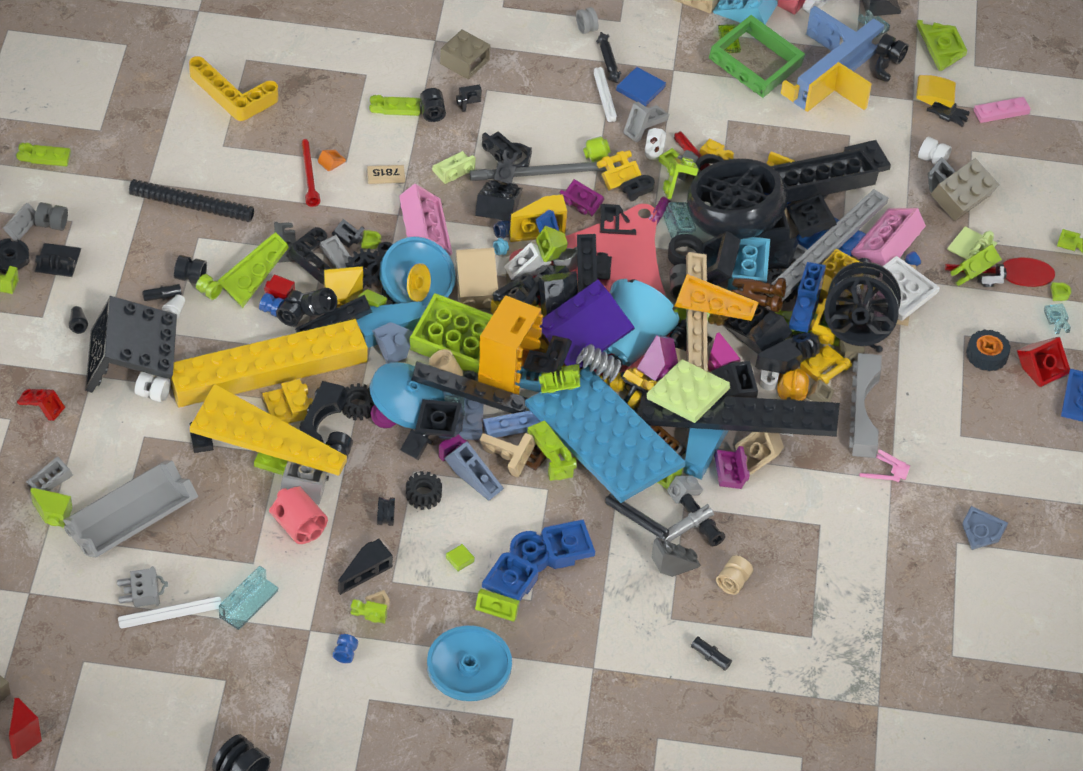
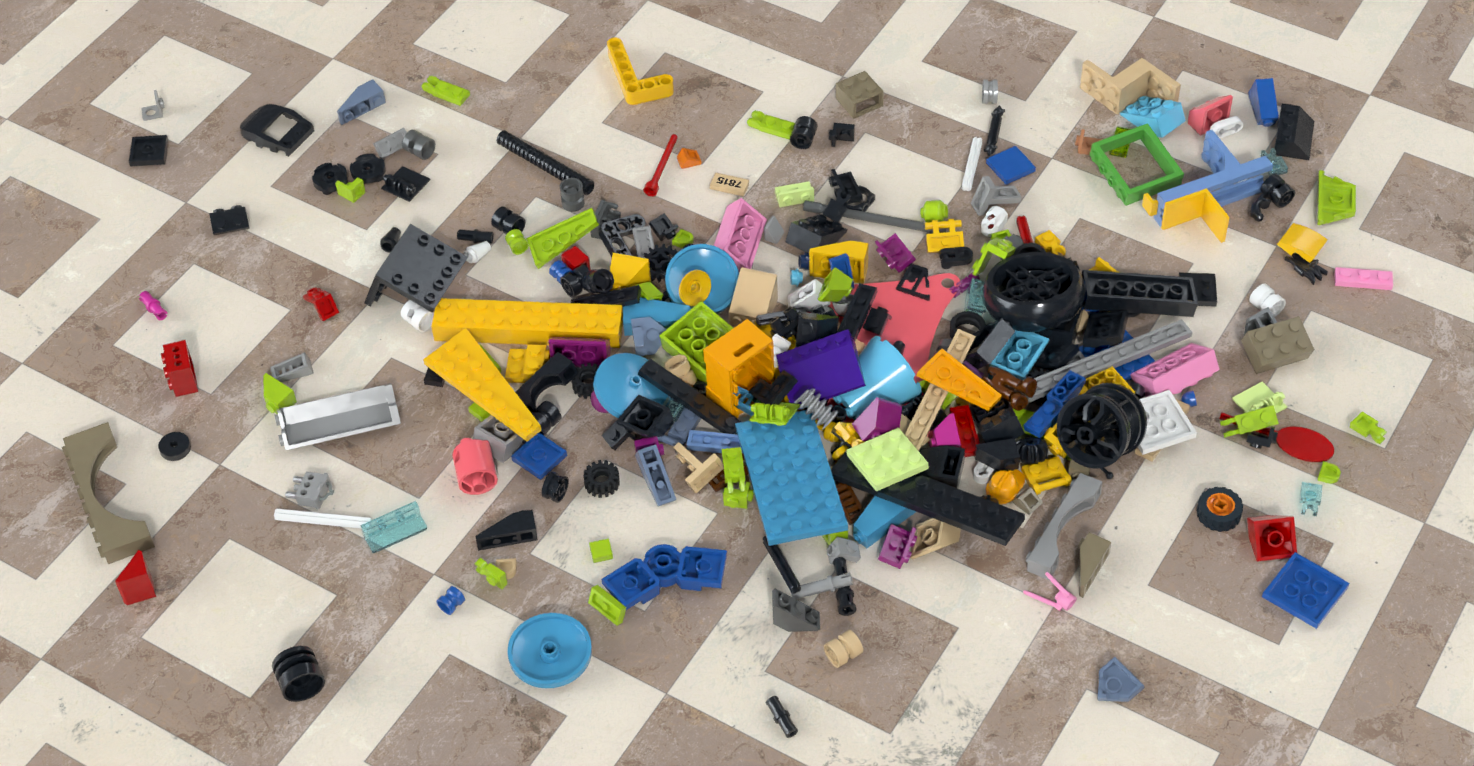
camera: 30 degrees right, 0 degrees up
(239, 225) = (572, 194): none -> dark grey wheel
(341, 372) = (581, 350): none -> magenta slope
(351, 487) = (539, 456): none -> blue plate
(455, 208) = (773, 230): none -> light grey slope
(700, 49) = (1084, 143): none -> nougat bracket
(735, 342) = (966, 429): none -> red plate
(903, 429) = (1092, 556): none -> dark tan slope

